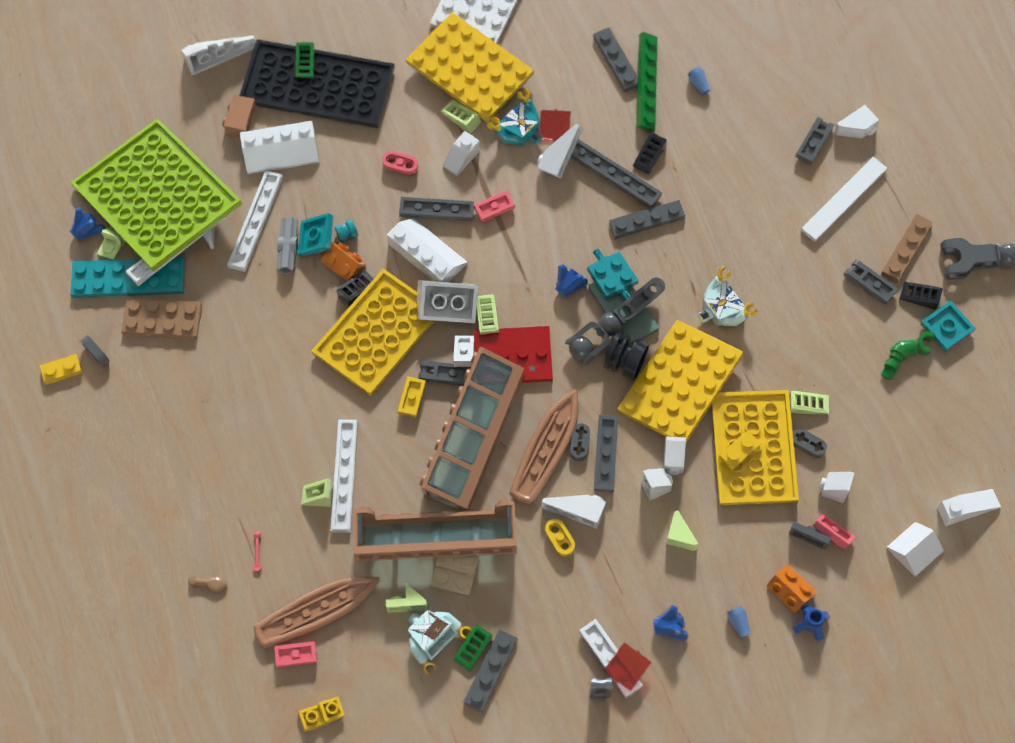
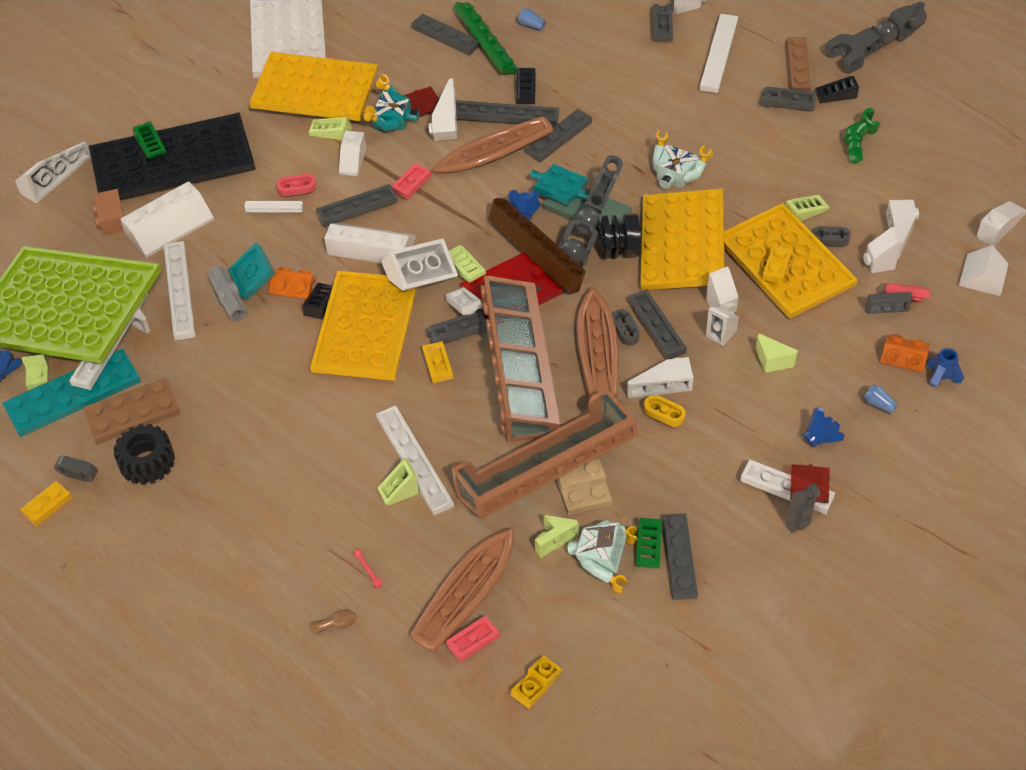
camera: 30 degrees left, 15 degrees down
(142, 353) = (142, 440): none -> black tyre
(346, 230) = (280, 256): teal wheel -> none
(371, 175) = (273, 206): none -> white axle
(549, 298) = (536, 245): none -> reddish brown beam
(584, 204) = (494, 145): none -> nougat piece
(879, 462) = (902, 216): none -> white slope
(948, 326) = (881, 99): teal plate -> none

